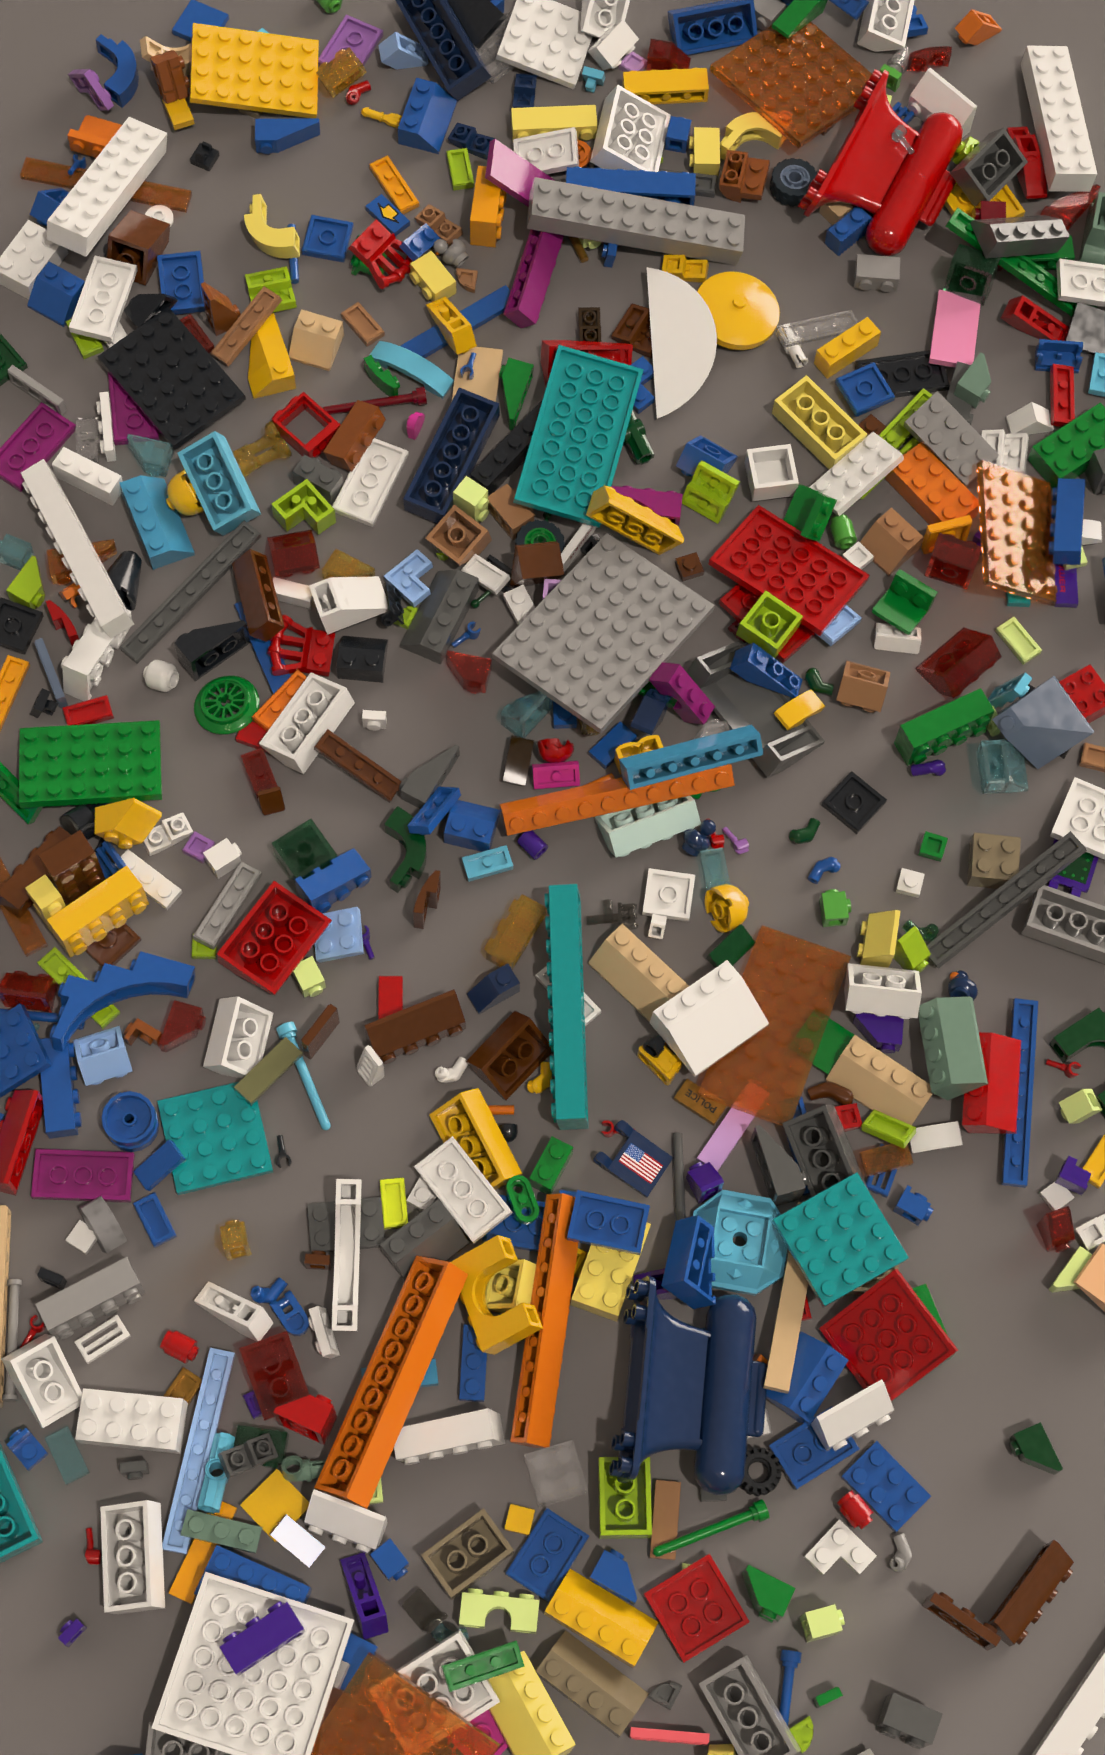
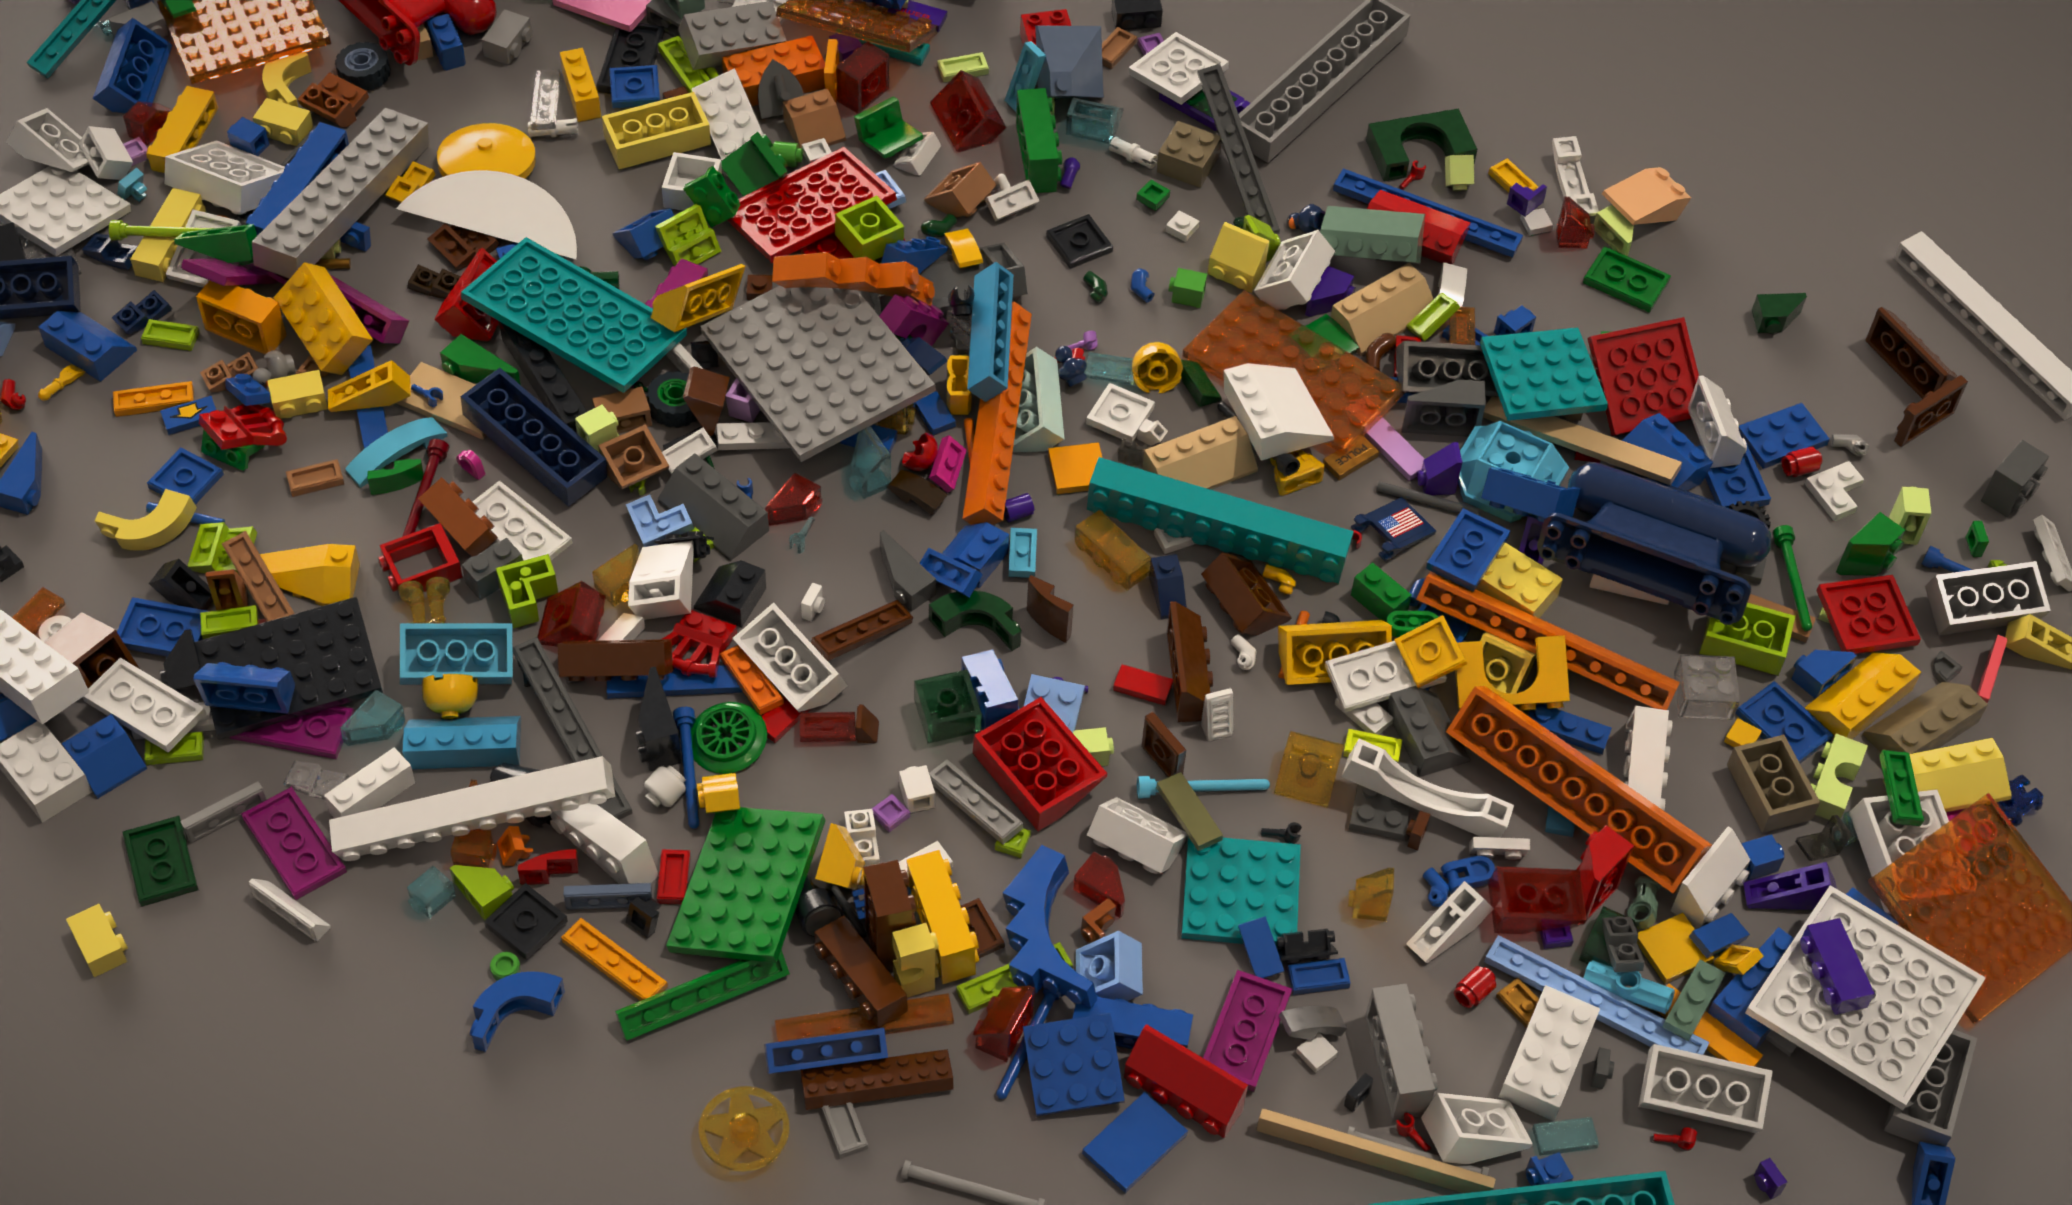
camera: 70 degrees left, 15 degrees down
(89, 1358) = (1447, 1086): white tile -> none
(105, 427) = (326, 755): white plate -> none
(130, 353) = (245, 687): none -> blue slope
(133, 1135) = (1202, 959): blue wheel -> none
(162, 715) = (718, 793): none -> yellow brick
(176, 1208) = (1317, 946): none -> black hinge
(198, 322) = (227, 620): none -> lime tile
(223, 275) = (182, 586): none -> black slope
(227, 668) = (684, 720): none -> blue piece
(268, 1559) = (1738, 959): none -> yellow tile
(316, 340) = (313, 519): tan slope -> none
(347, 1155) = (1309, 769): none -> clear yellow slope
(439, 689) = (800, 537): none -> clear light blue hand
(484, 1218) = (1430, 651): none -> yellow tile
(500, 261) = (323, 318): none -> yellow brick
(534, 89) = (119, 230): none -> lime piece
(543, 156) = (224, 243): none -> green slope
(597, 879) = (1073, 466): none -> light orange tile
(690, 631) = (852, 273): none -> orange arch
(714, 723) = (959, 306): none -> black piece
(755, 492) = (713, 196): none -> green bracket
(872, 728) = (1010, 199): none -> white plate
(907, 499) = (776, 87): none -> dark grey shield
(977, 813) = (1133, 152): none -> white pin
(1021, 1297) = (1626, 279): none -> green tile

